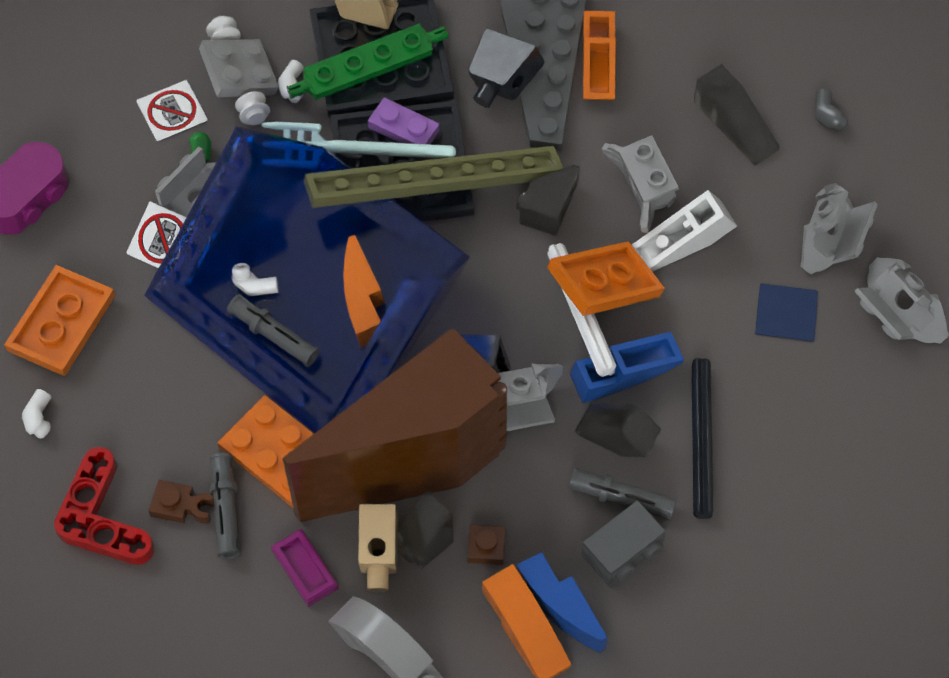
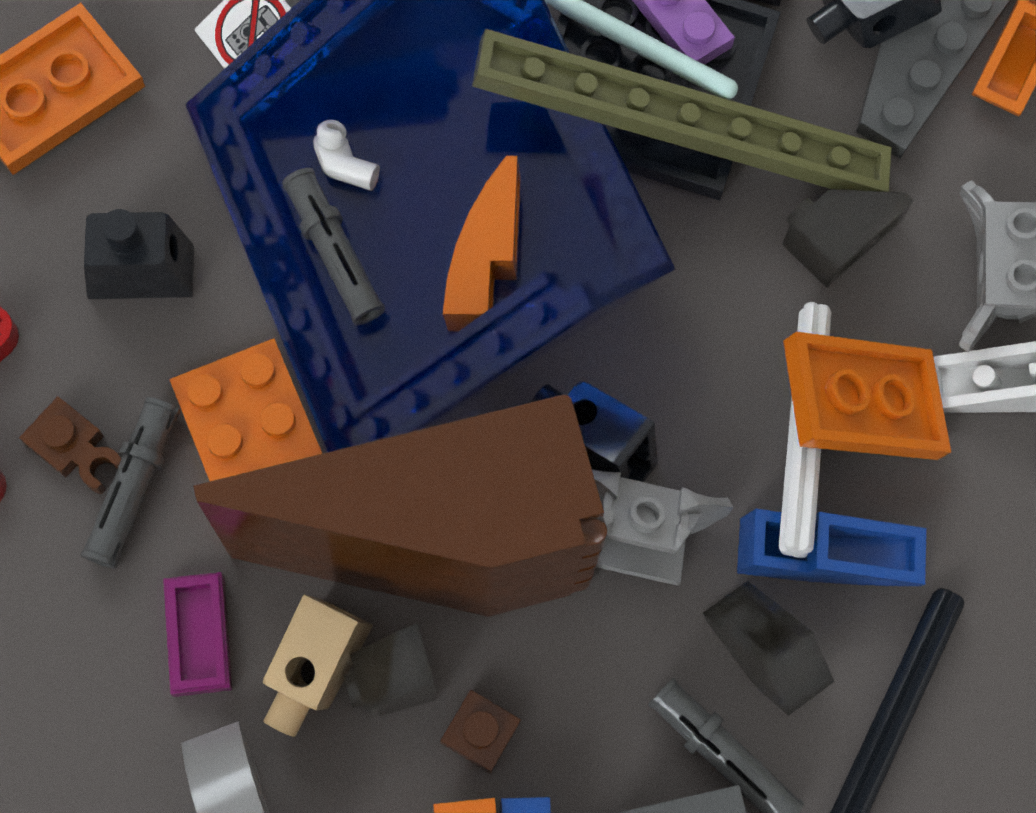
camera: 20 degrees right, 10 degrees up
(163, 385) = (132, 256): none -> black torso

